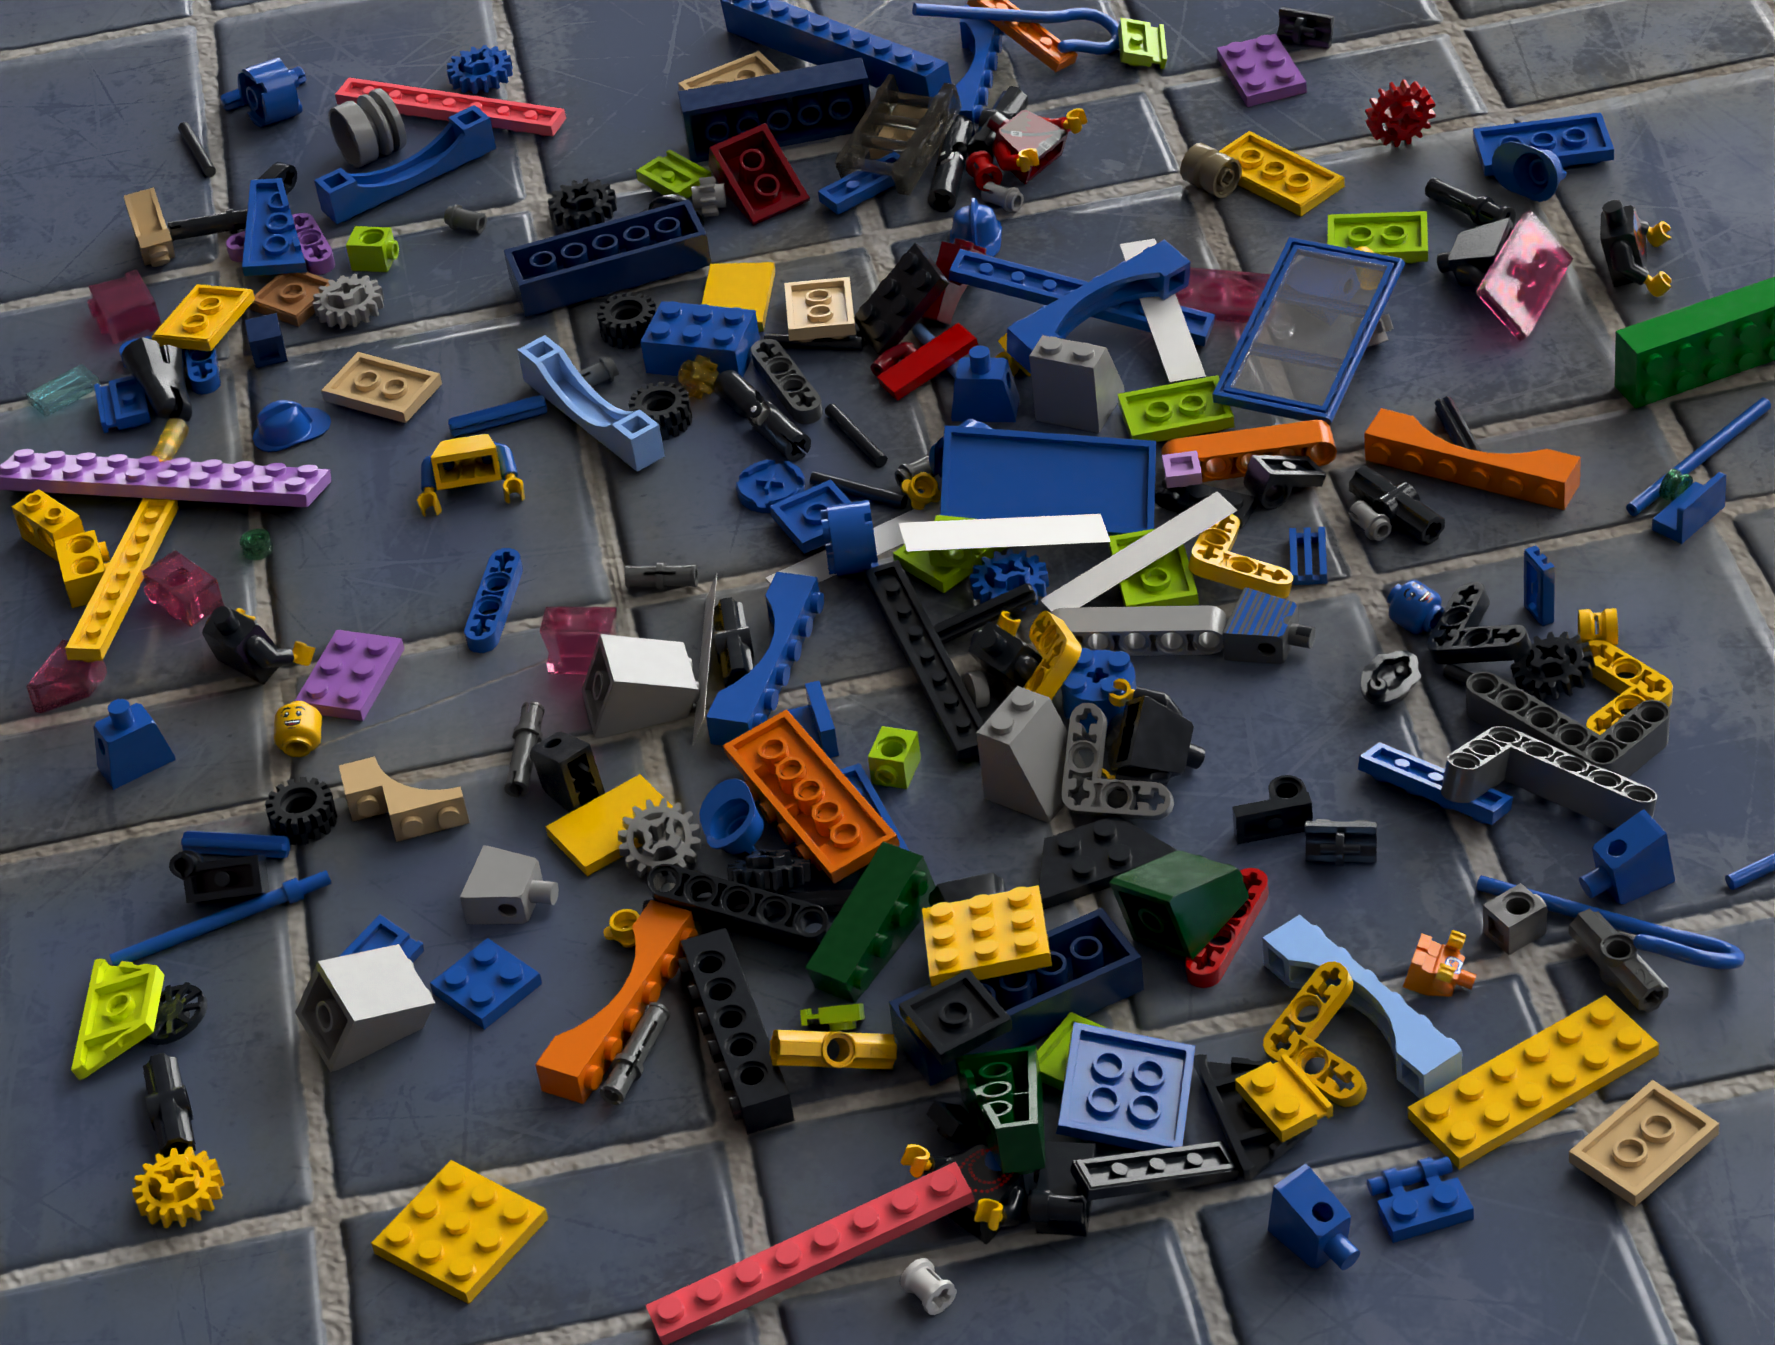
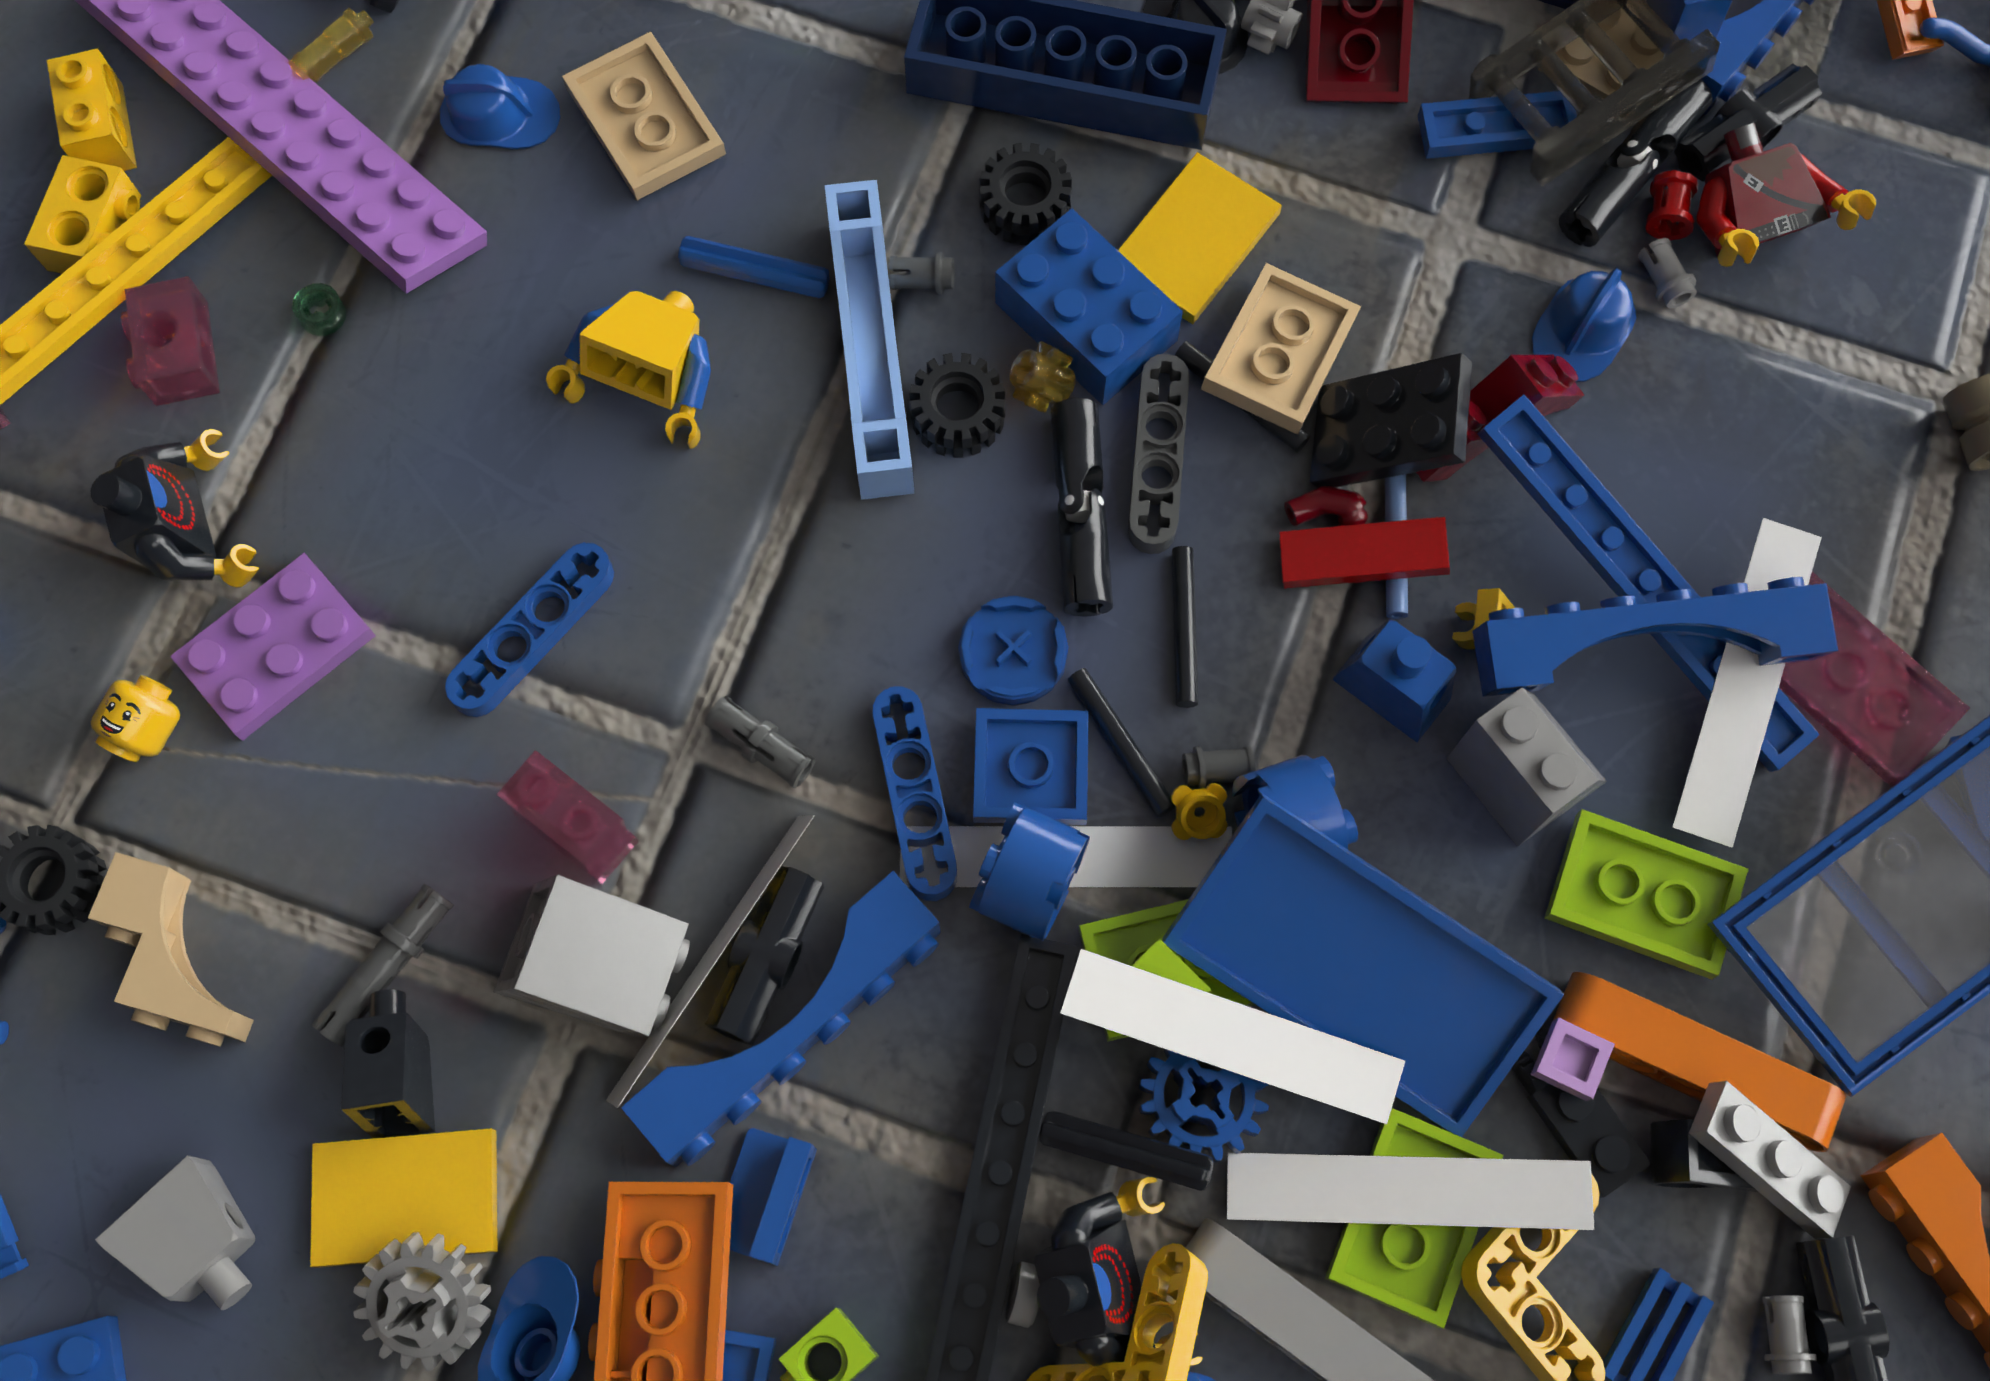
camera: 25 degrees right, 30 degrees up
(757, 560) = (918, 791): none -> blue beam
(1306, 457) = (1770, 1159): none -> light grey plate

